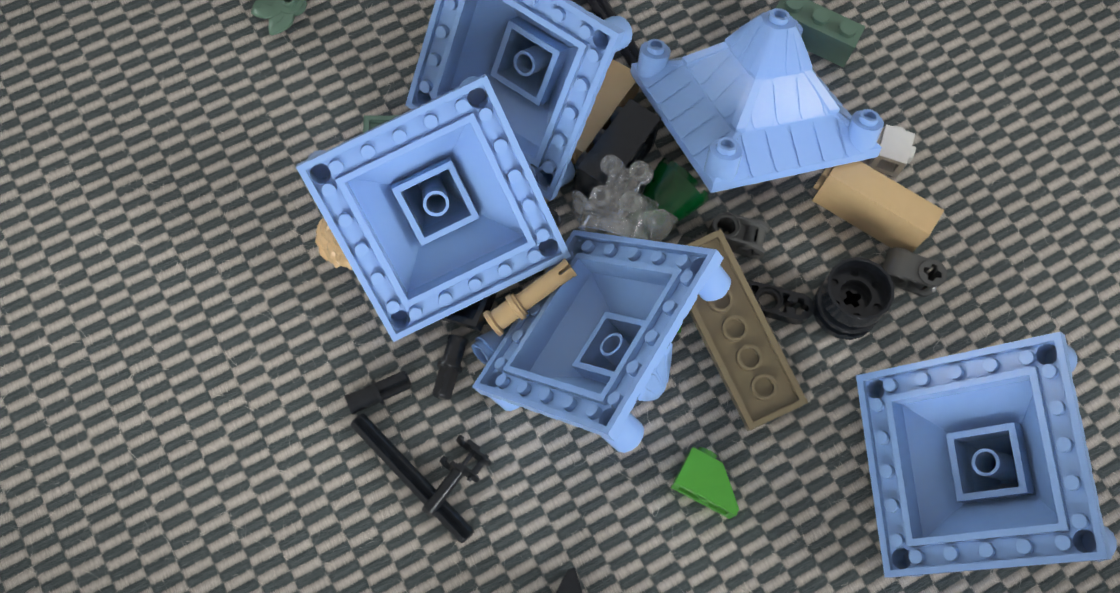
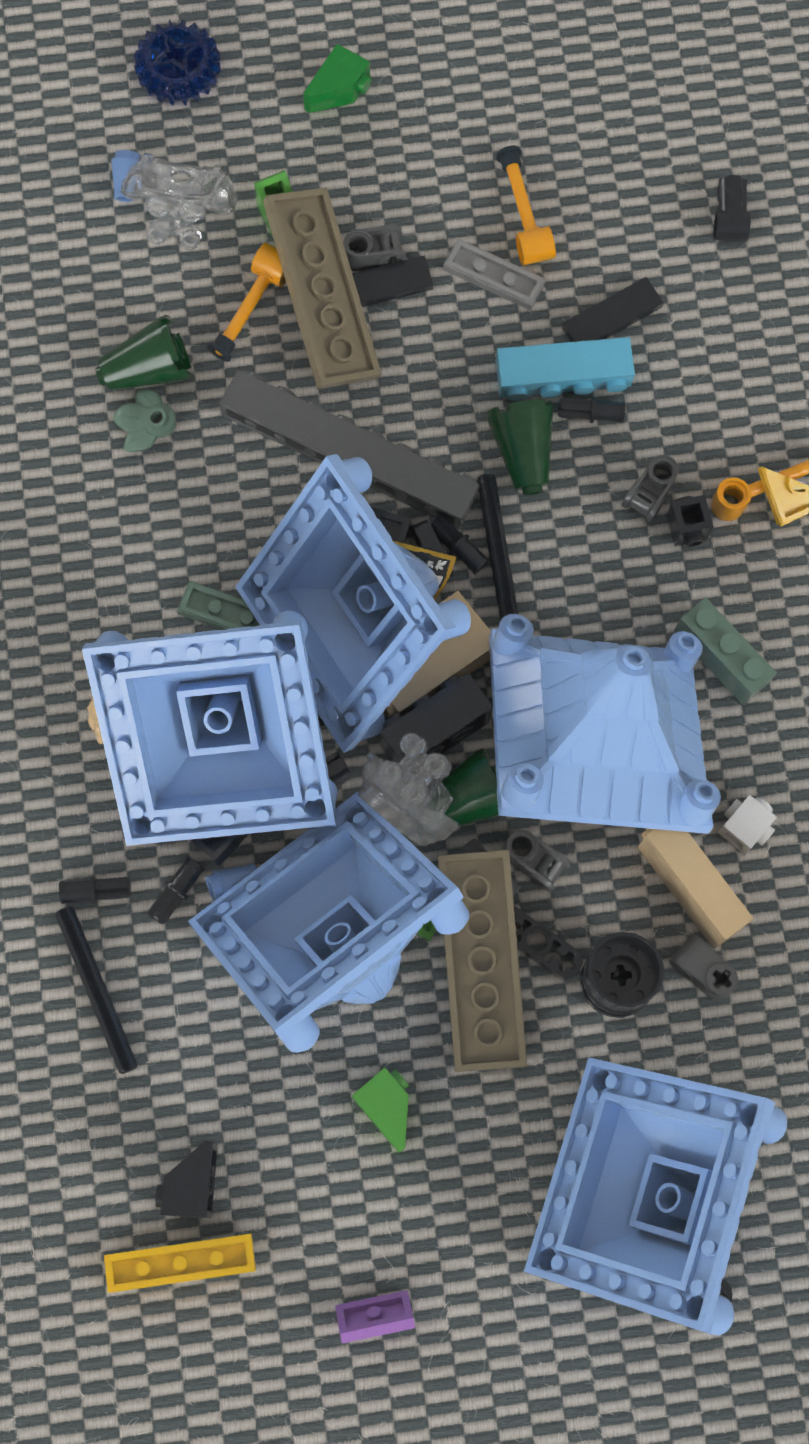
camera: 25 degrees right, 5 degrees up
(455, 474) = (139, 1003): black piece -> none
(516, 306) = (263, 855): tan pin -> none

